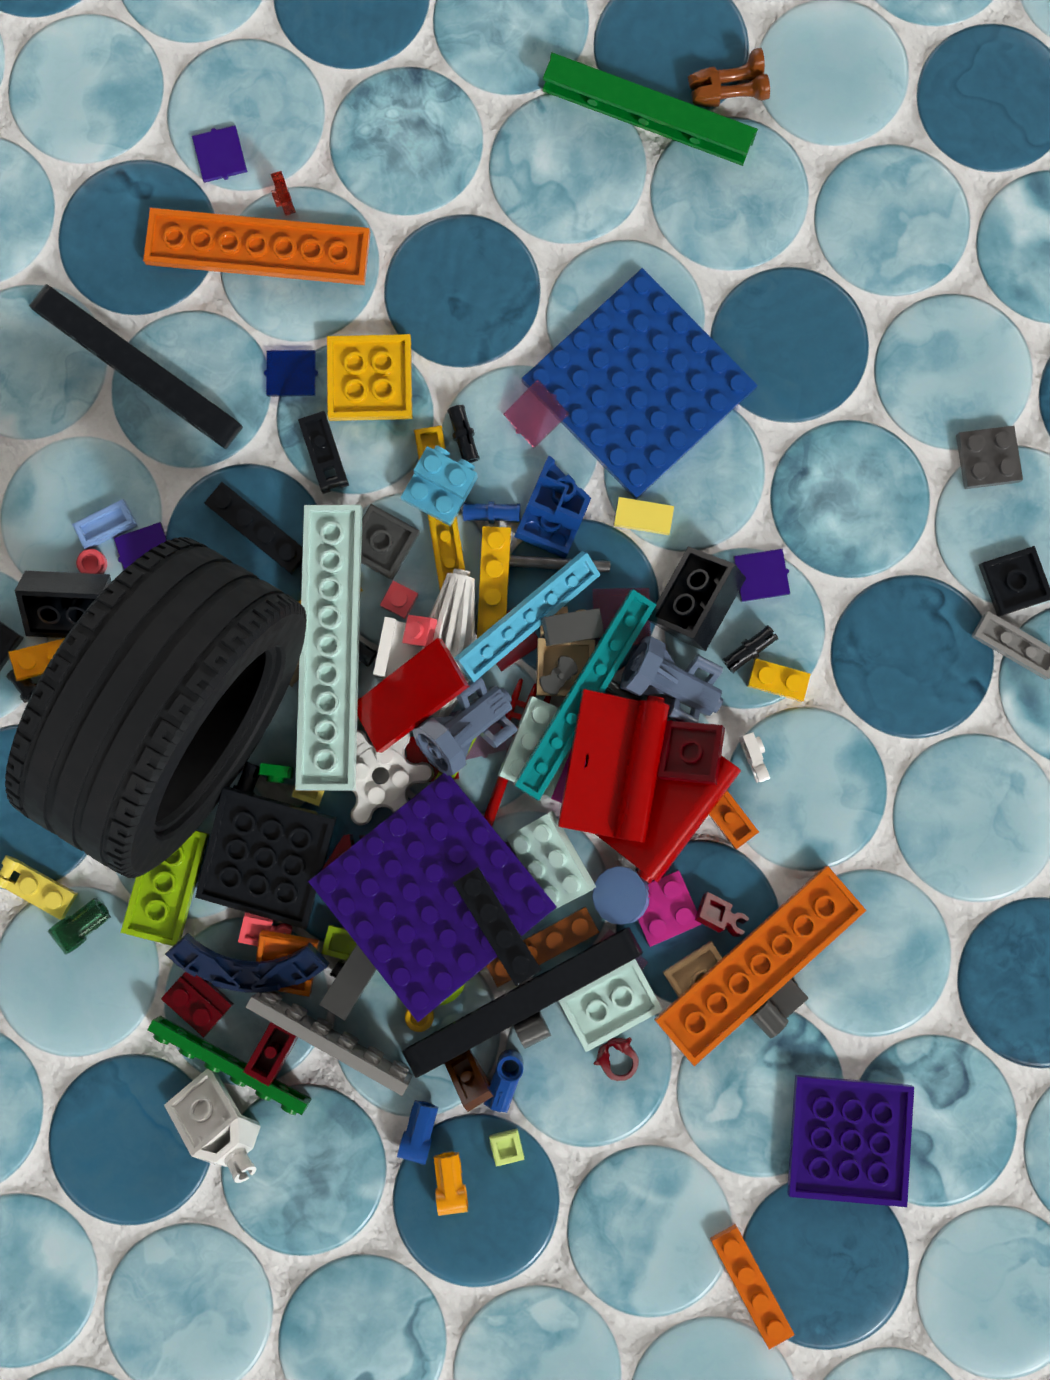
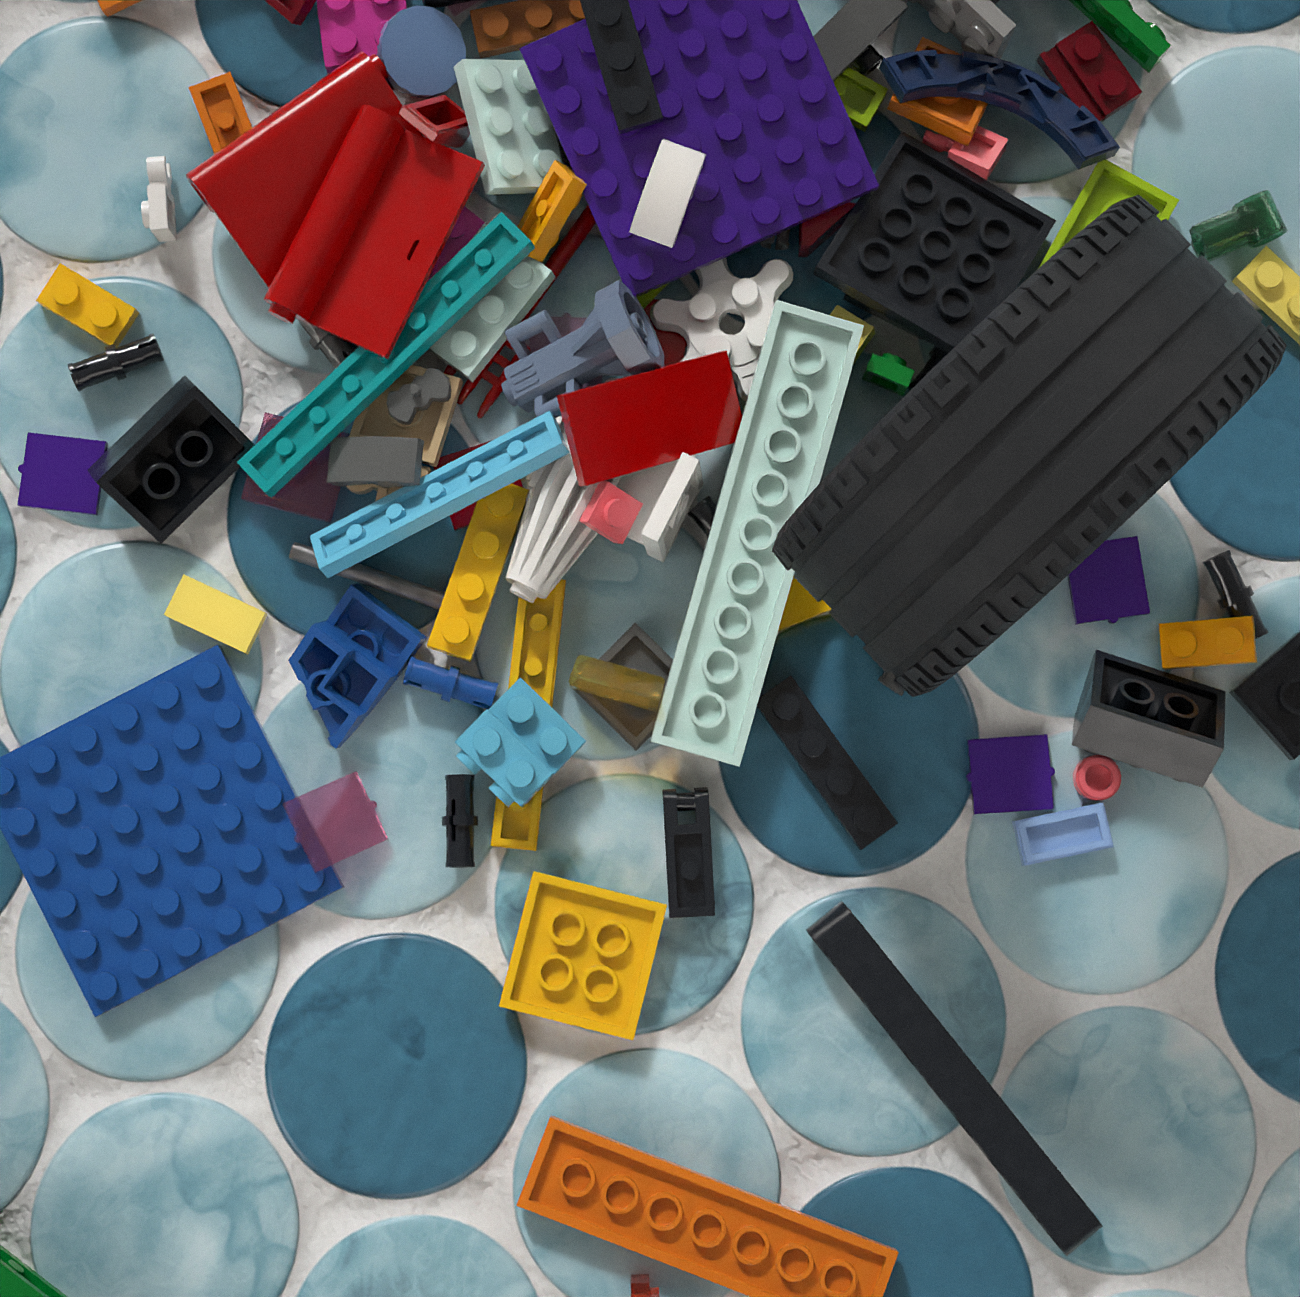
camera: 170 degrees left, 0 degrees up
(291, 373) = (707, 1001): clear blue piece -> none
(391, 536) = (616, 682): none -> clear yellow slope
(399, 599) = (632, 588): coral plate -> none
(437, 836) = (667, 193): none -> white slope
(511, 814) = (550, 208): none -> light orange plate
(596, 849) = (438, 120): none -> red slope
(654, 672) = (273, 362): sand blue piece -> none
(691, 752) = (251, 217): dark red plate -> none

